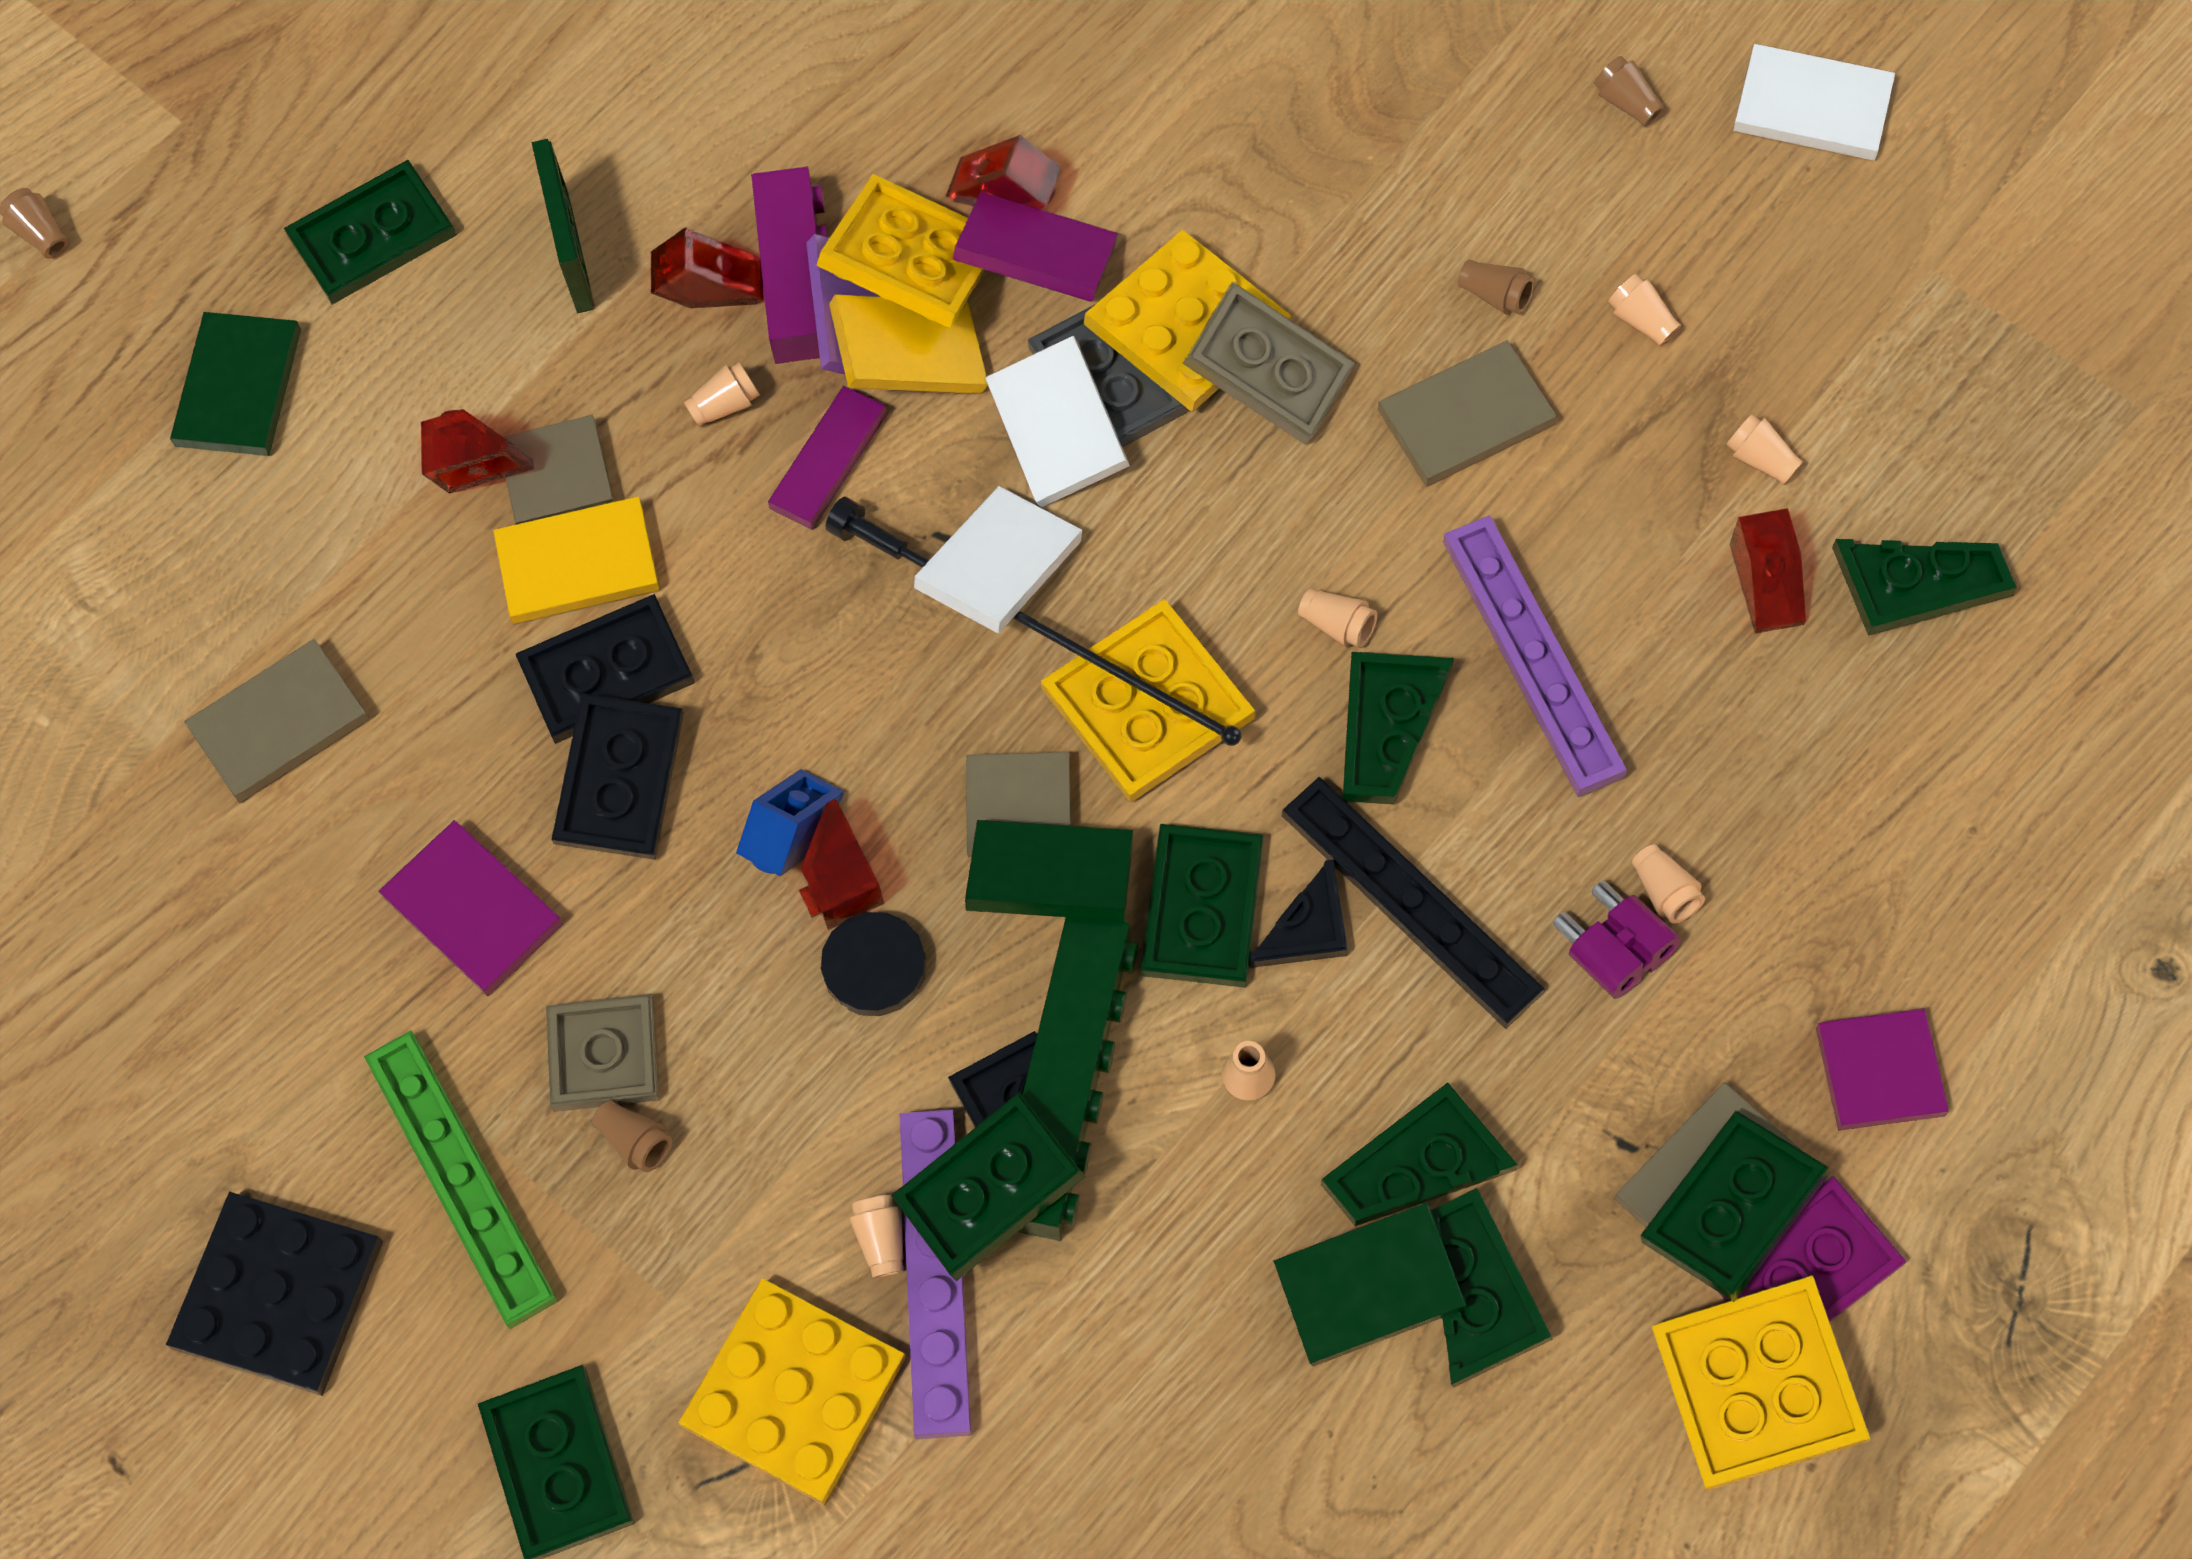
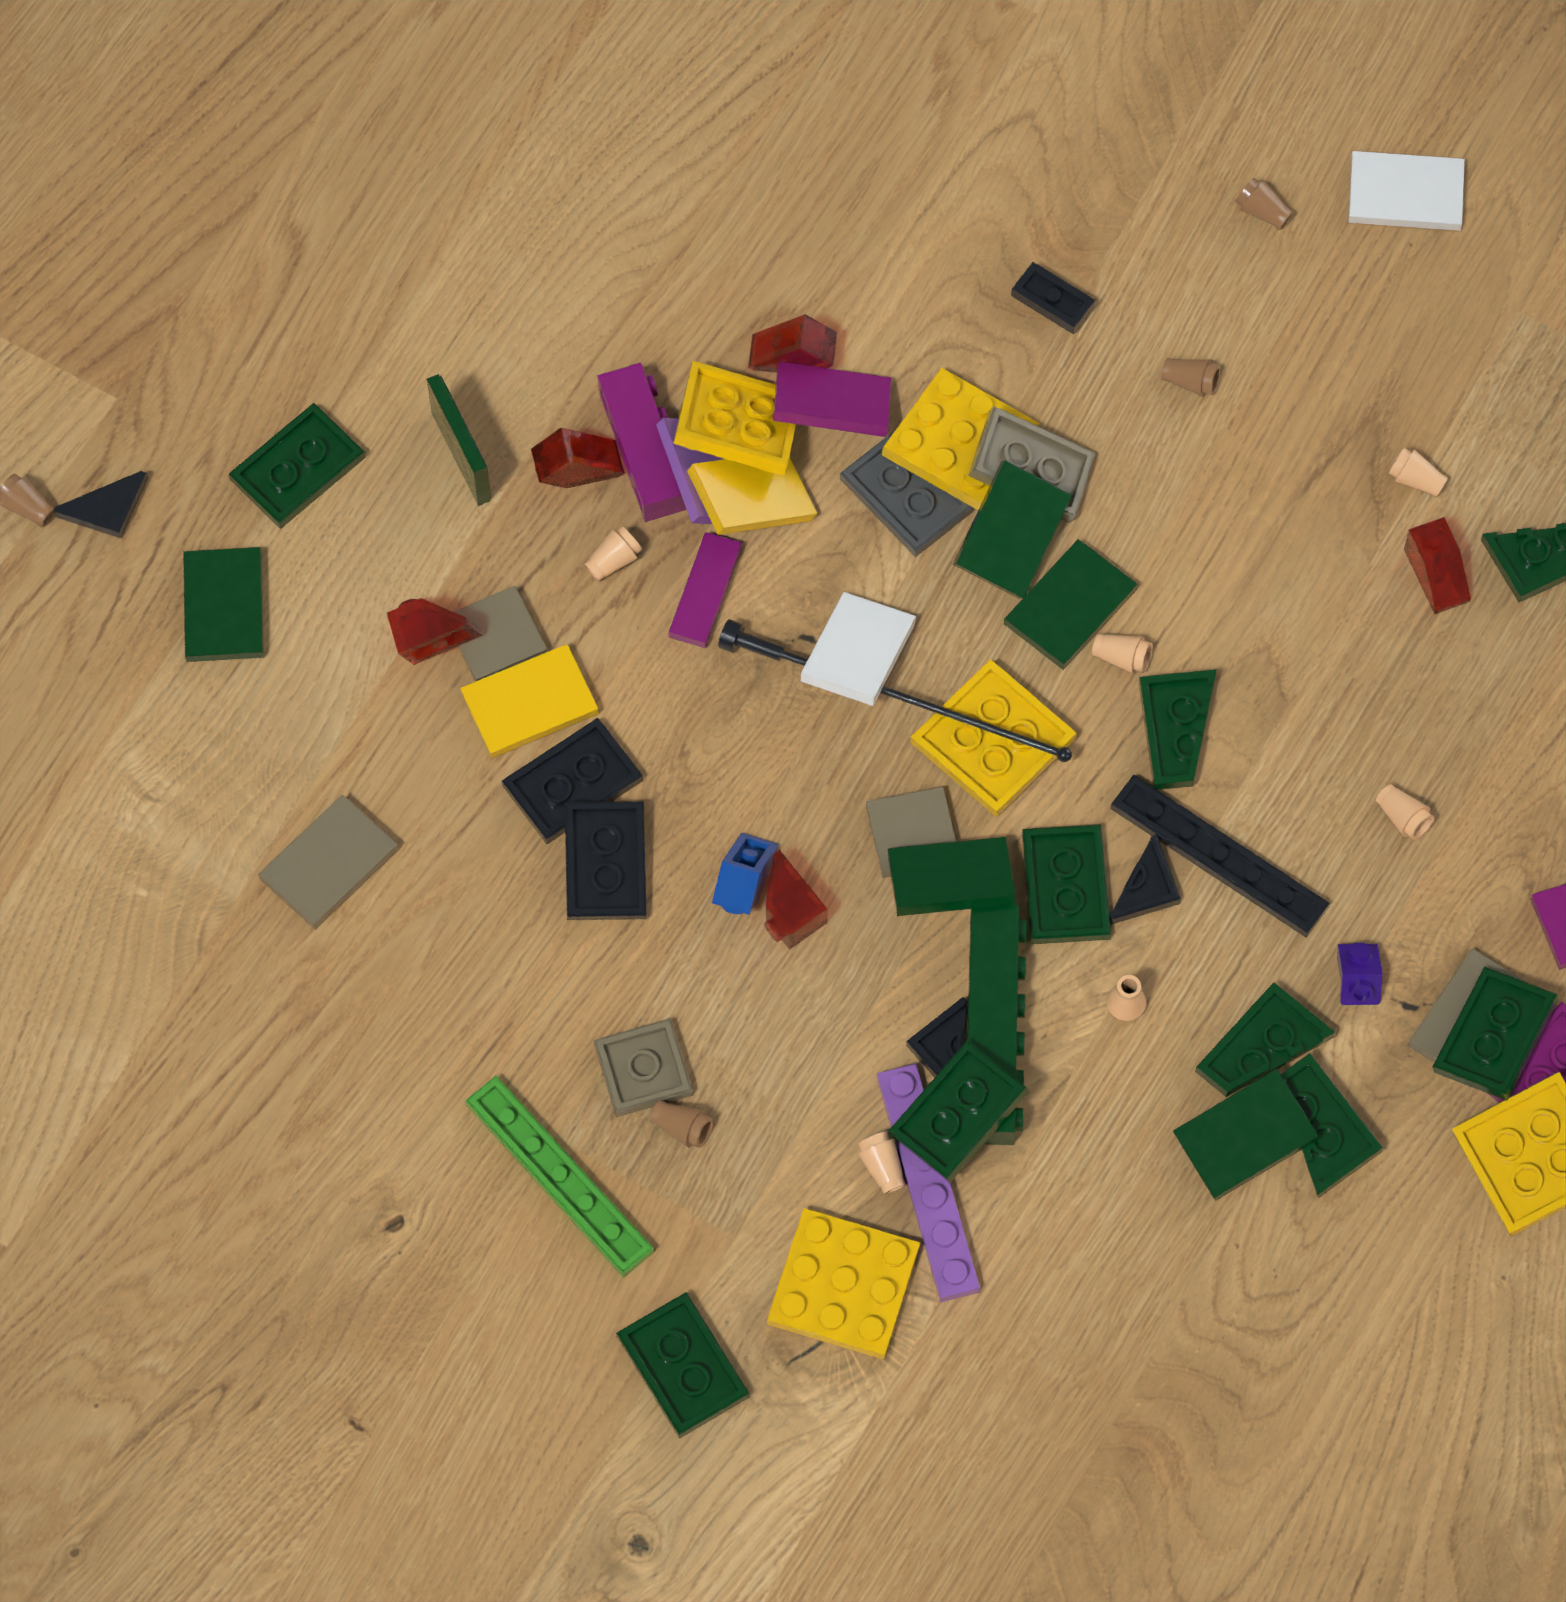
camera: 15 degrees left, 0 degrees up
(131, 246) = (107, 507): none -> black tile
(275, 1293) = (443, 1282): black plate -> none
(470, 907) = (516, 977): magenta tile -> none
(873, 963) = (831, 968): black tile -> none
(1057, 422) = (878, 534): white tile -> none
(1225, 439) = (1012, 529): none -> dark green tile
(1284, 546) = (1070, 604): none -> dark green tile
(1341, 166) = (1053, 298): none -> black plate
(1467, 413) = (1188, 478): dark tan tile -> none
(1534, 656) = (1275, 657): medium lavender plate -> none
(1566, 1090) = (1359, 974): none -> dark purple bracket
(1622, 945) = (1380, 862): magenta piece -> none
(1643, 309) = (1307, 377): light nougat cone -> none

